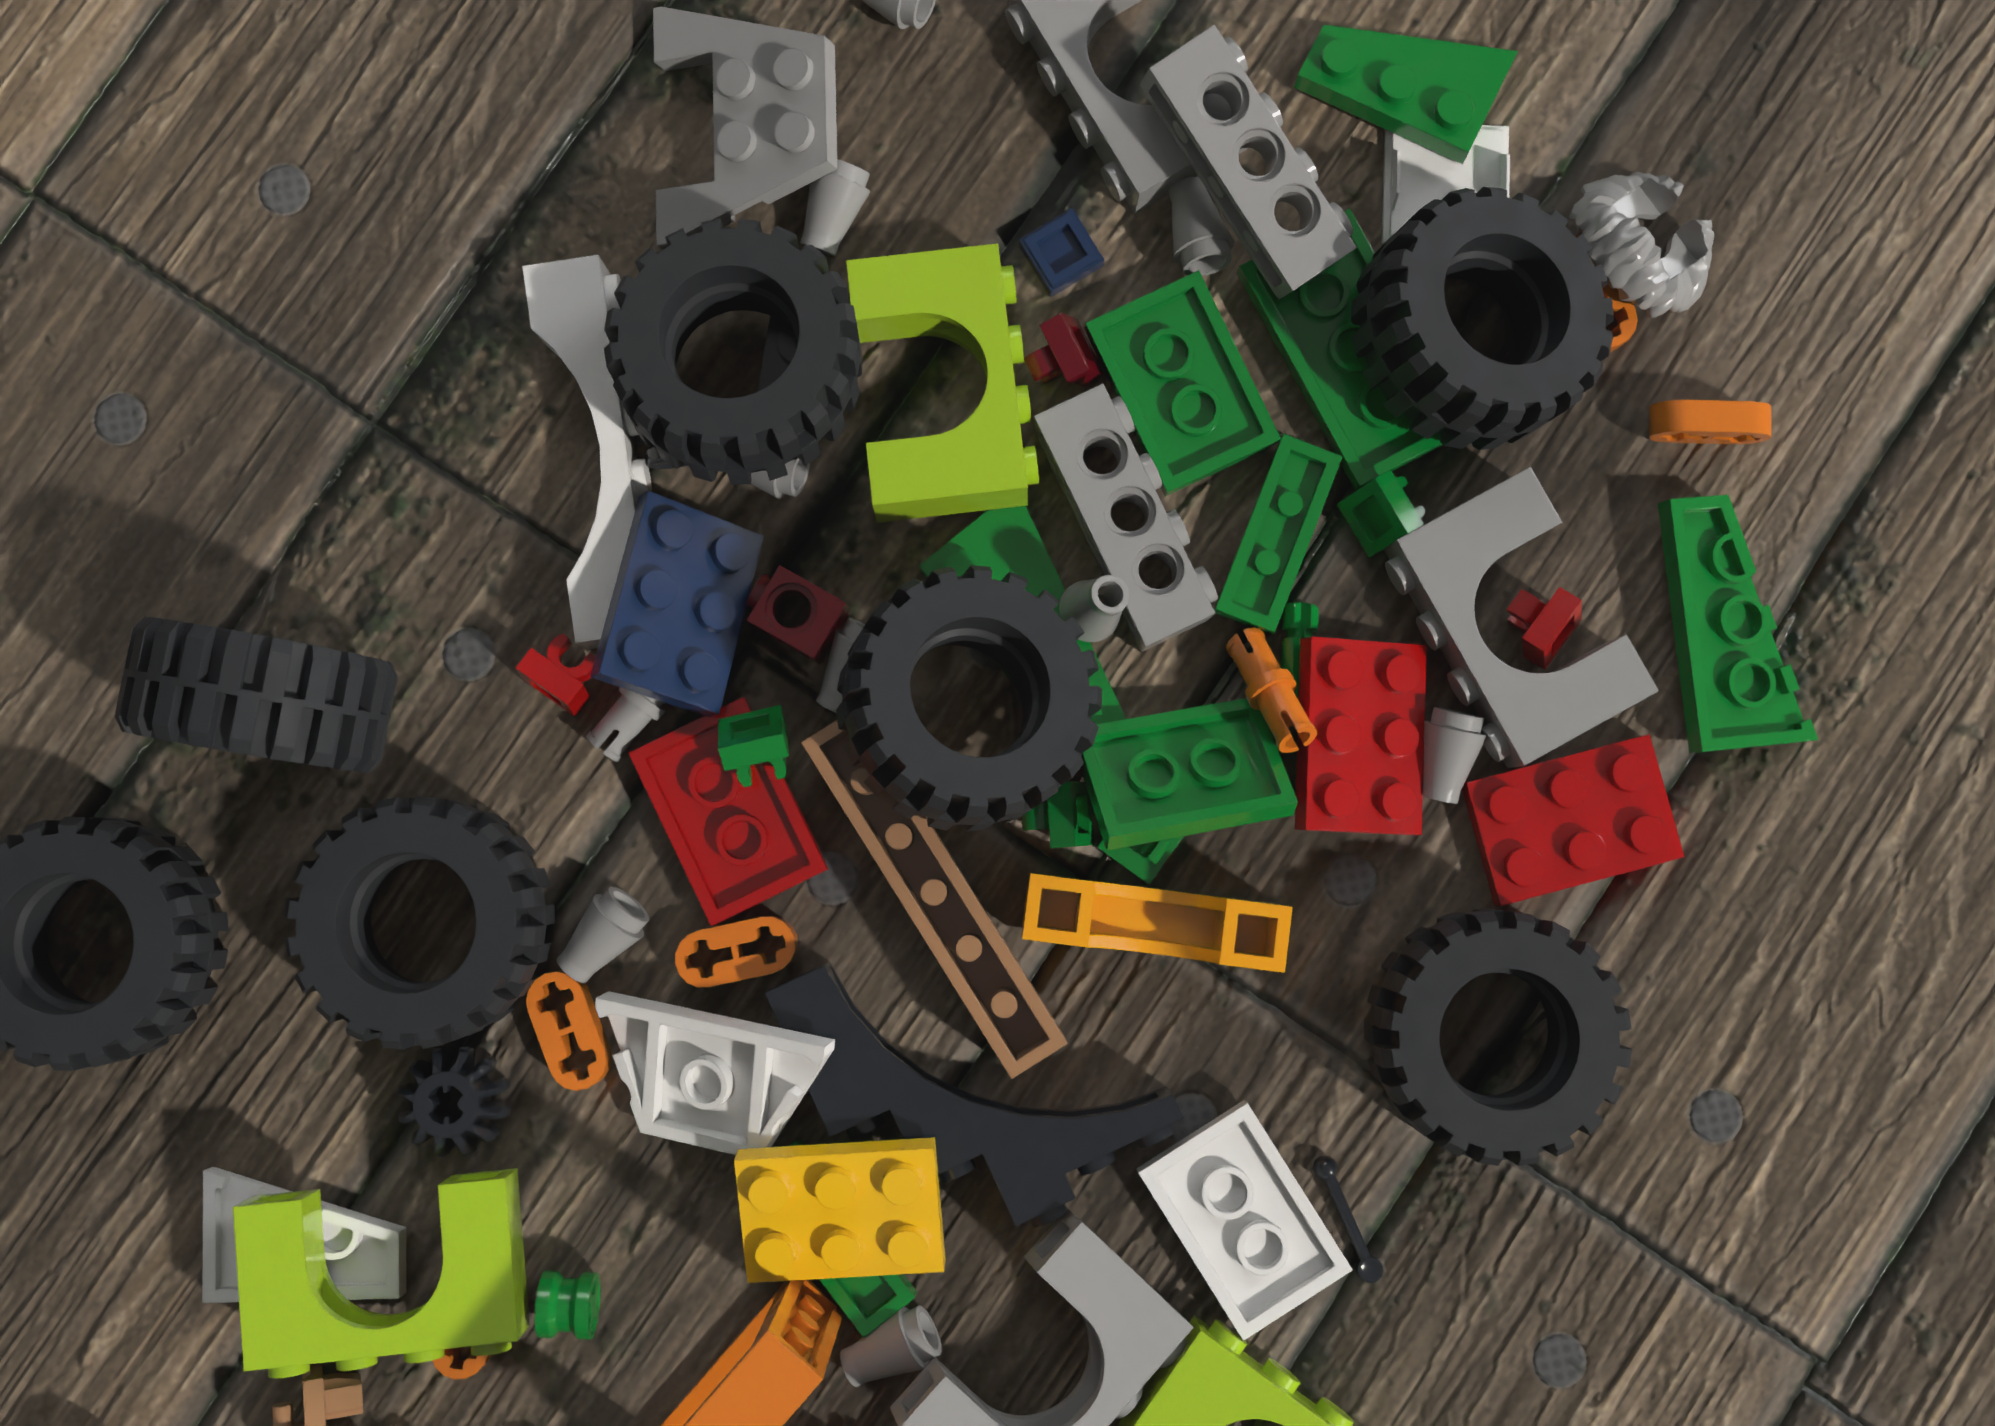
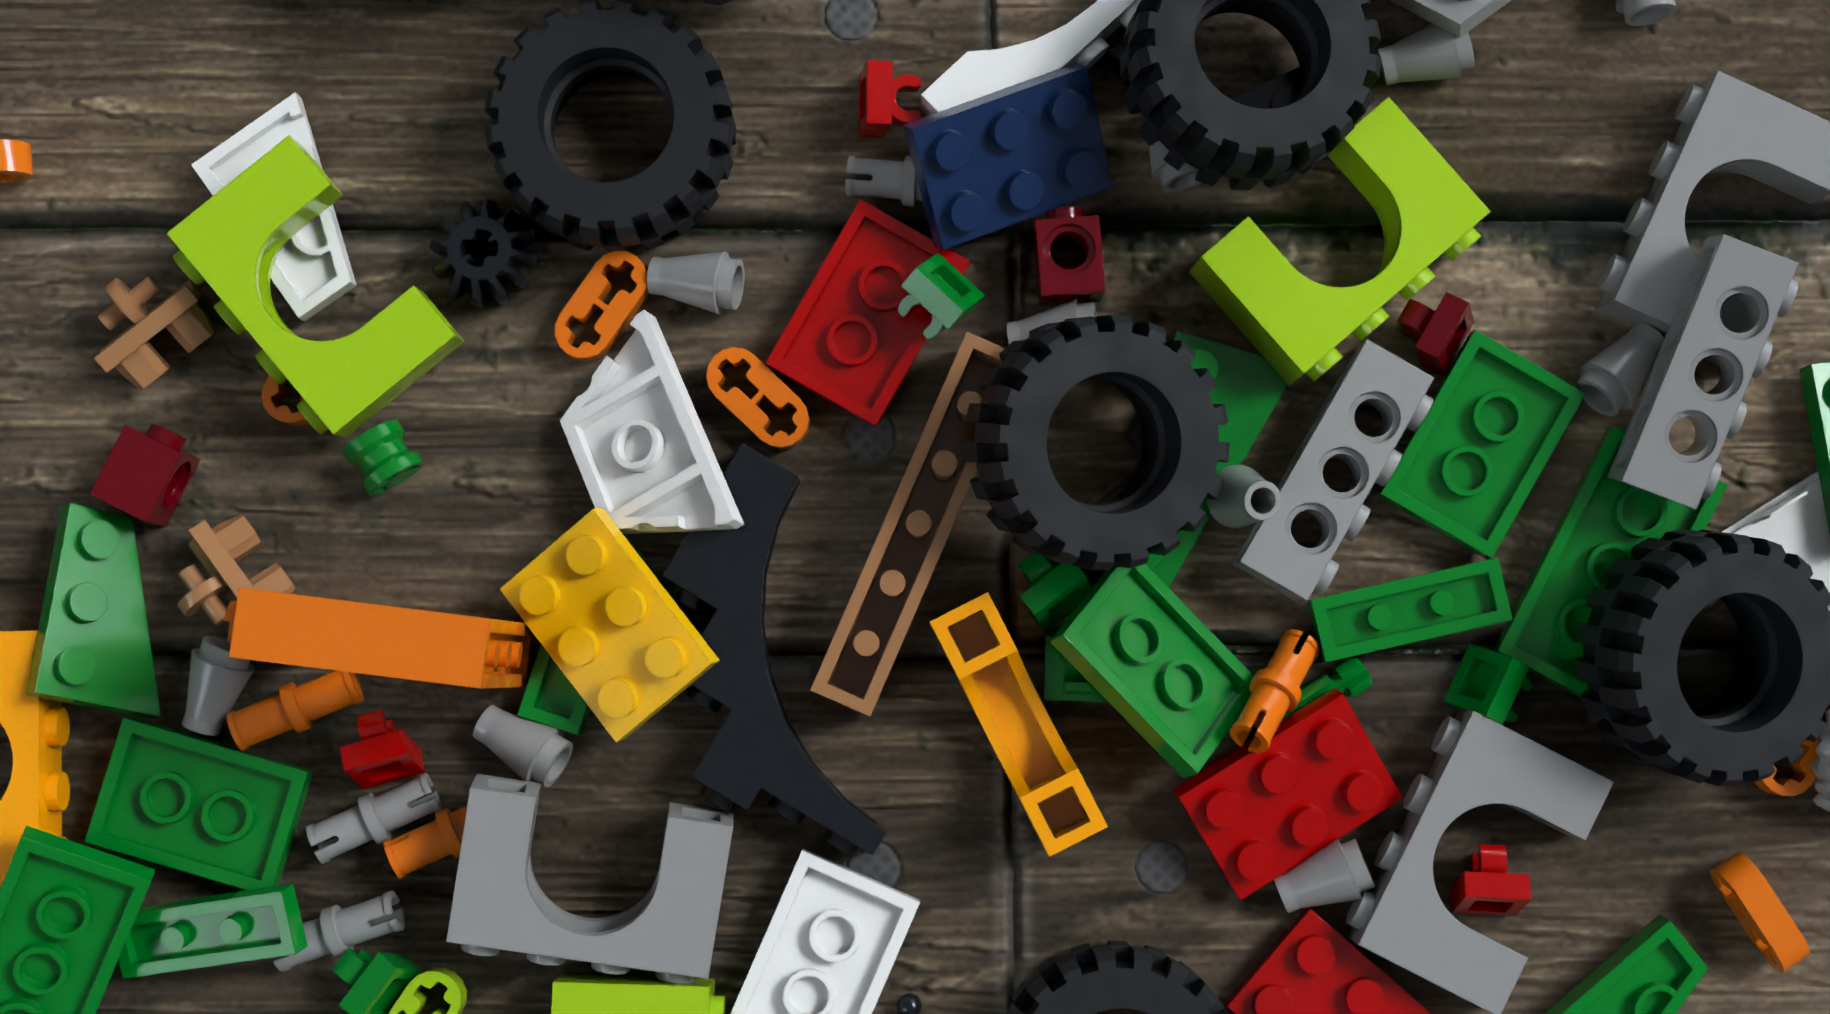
camera: 60 degrees right, 0 degrees up
(1061, 252) = (1521, 270): dark blue tile -> none

